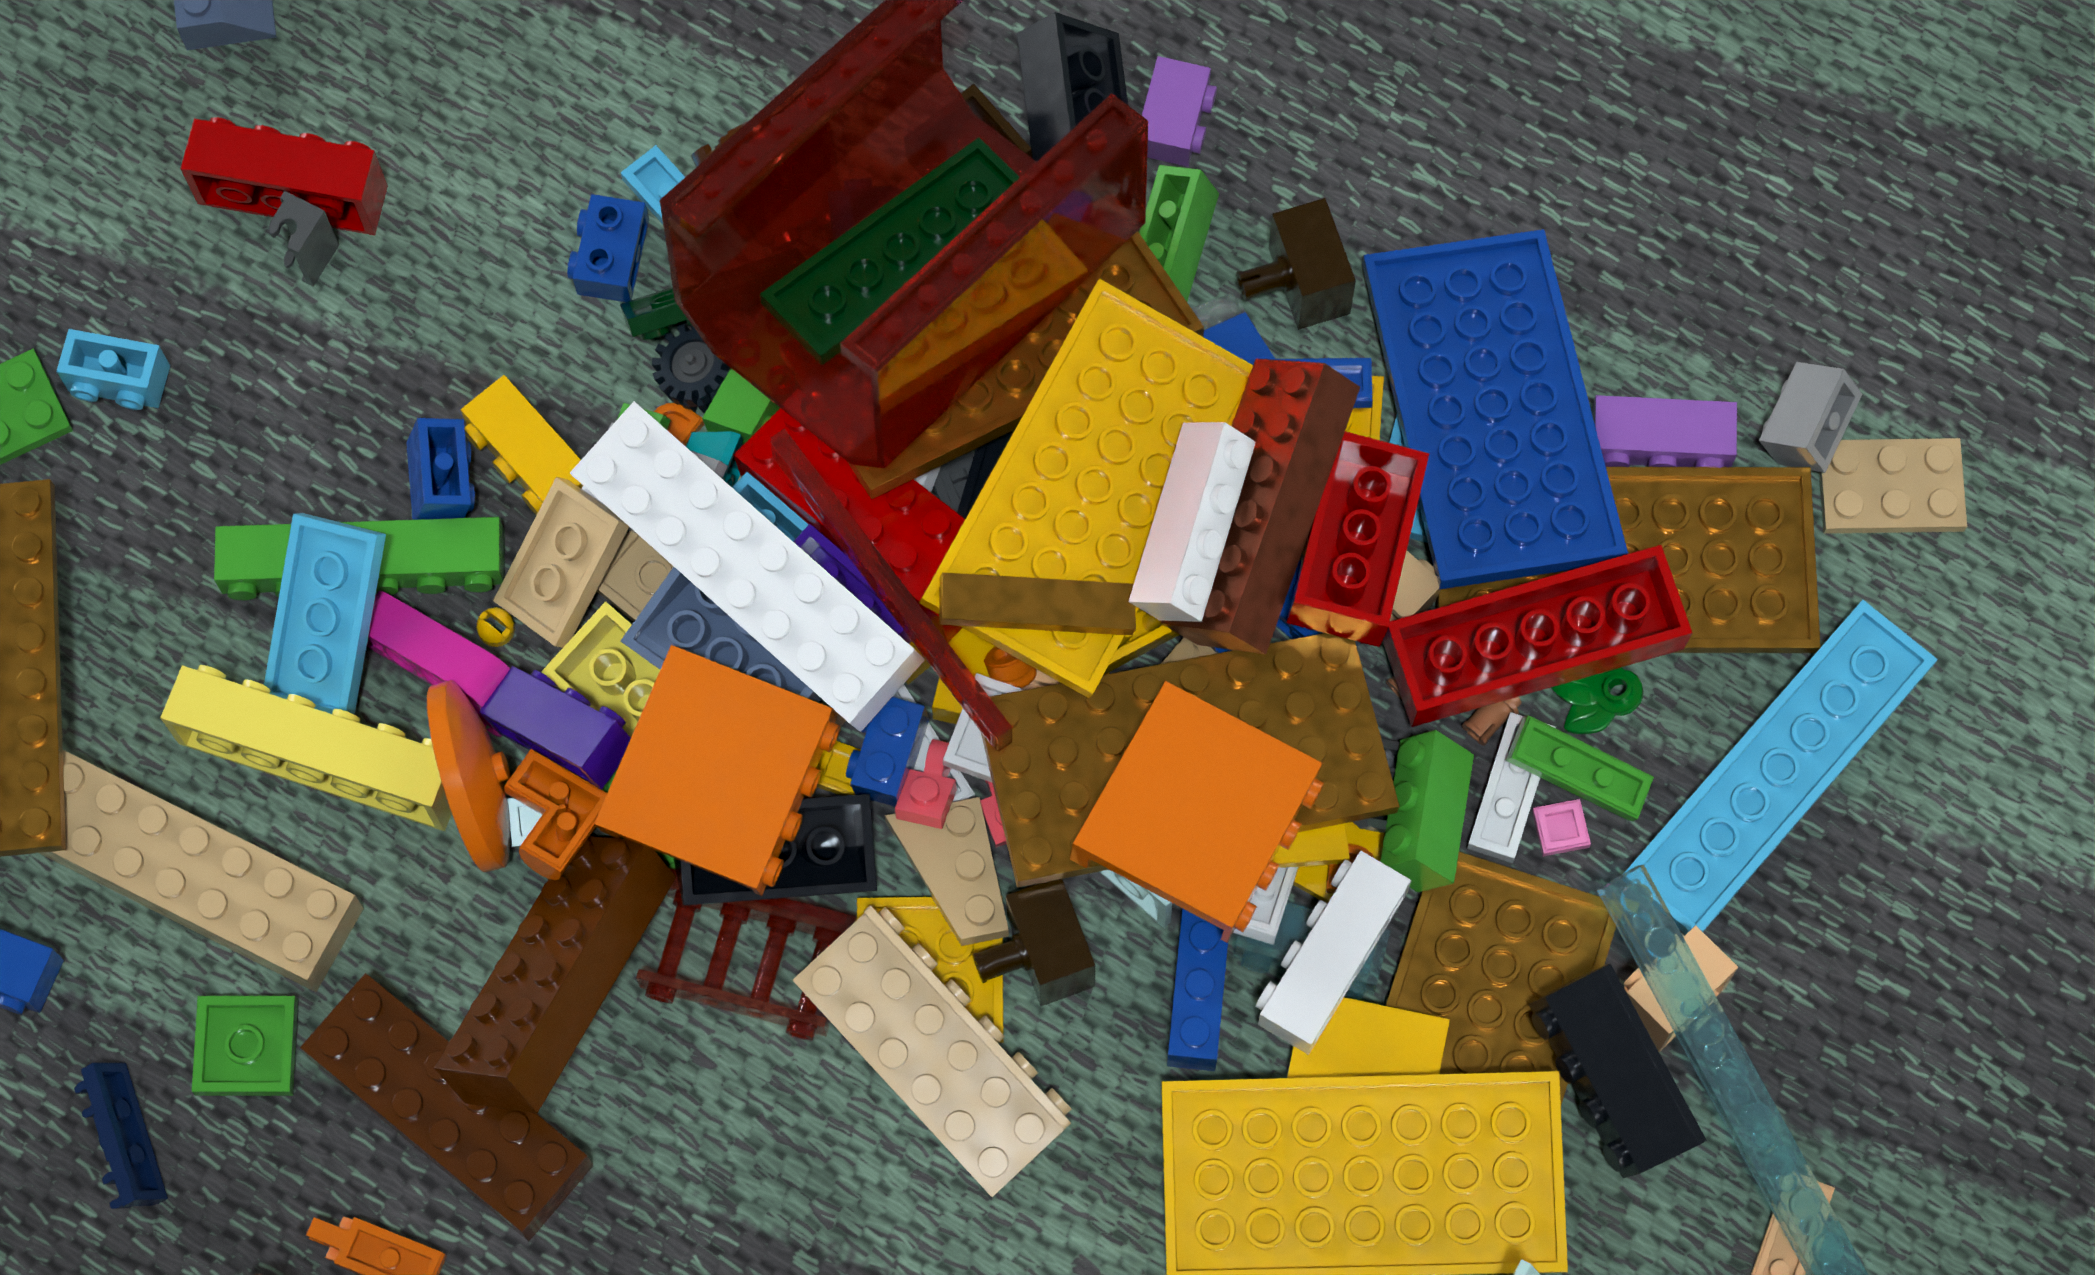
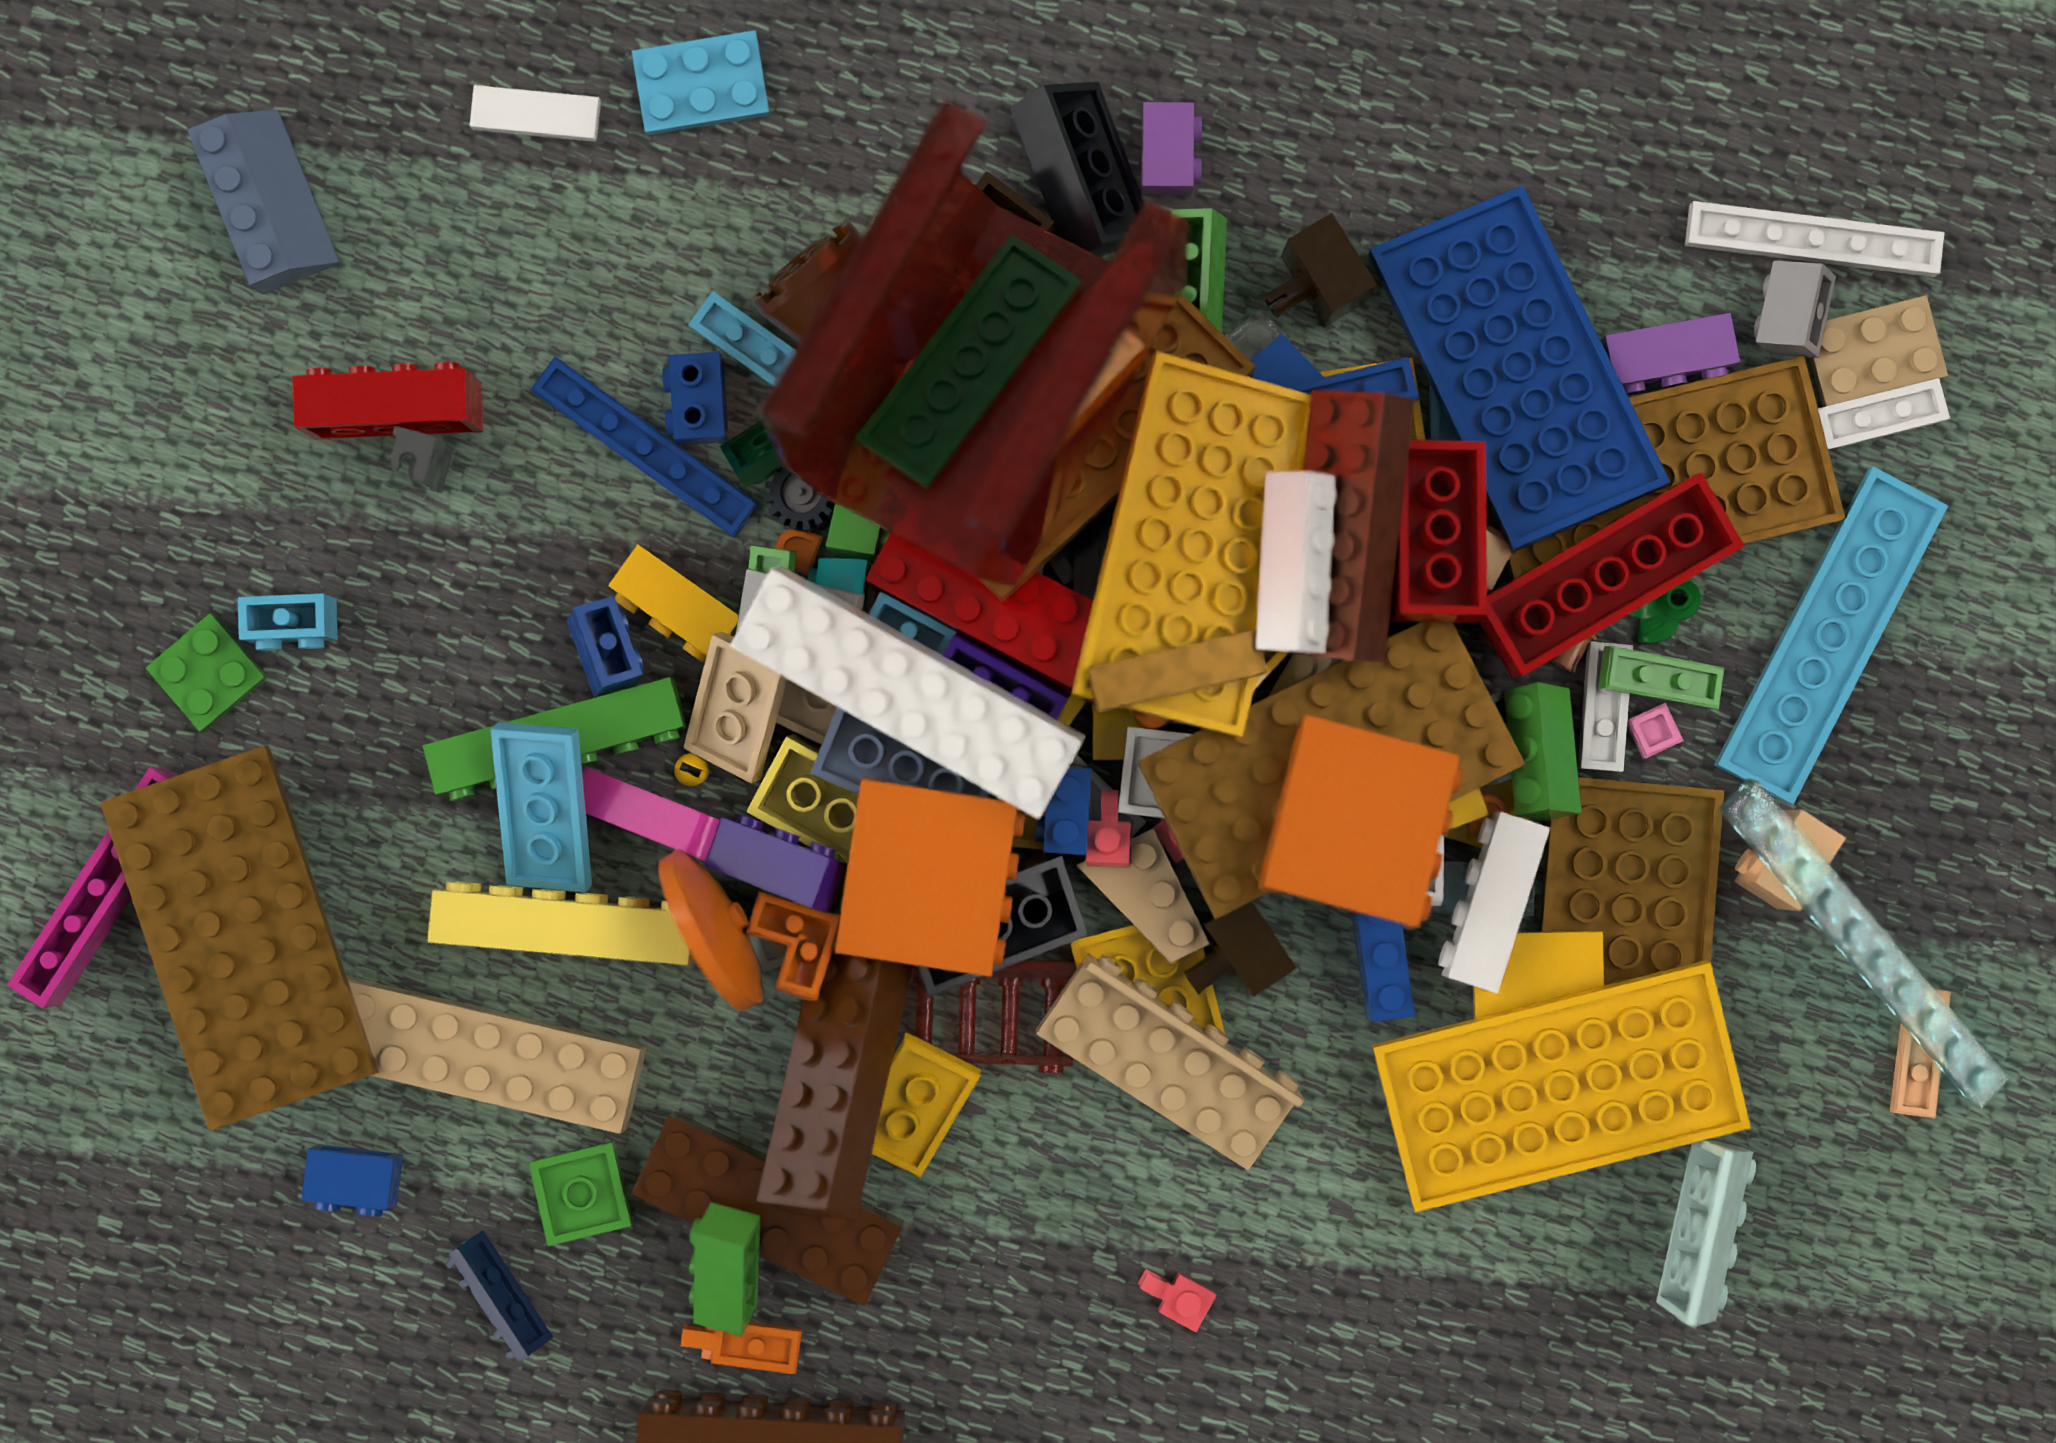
camera: 15 degrees left, 15 degrees up
(379, 1151) = (725, 1268): none -> bright green brick
(541, 288) = (644, 447): none -> blue tile
(640, 1030) = (920, 1103): none -> yellow tile
(891, 591) = (1042, 685): clear red tile -> none
(1616, 1072) = (1755, 946): black slope -> none
(1863, 356) = (1814, 239): none -> white plate
(1885, 550) = (1883, 414): none -> white plate

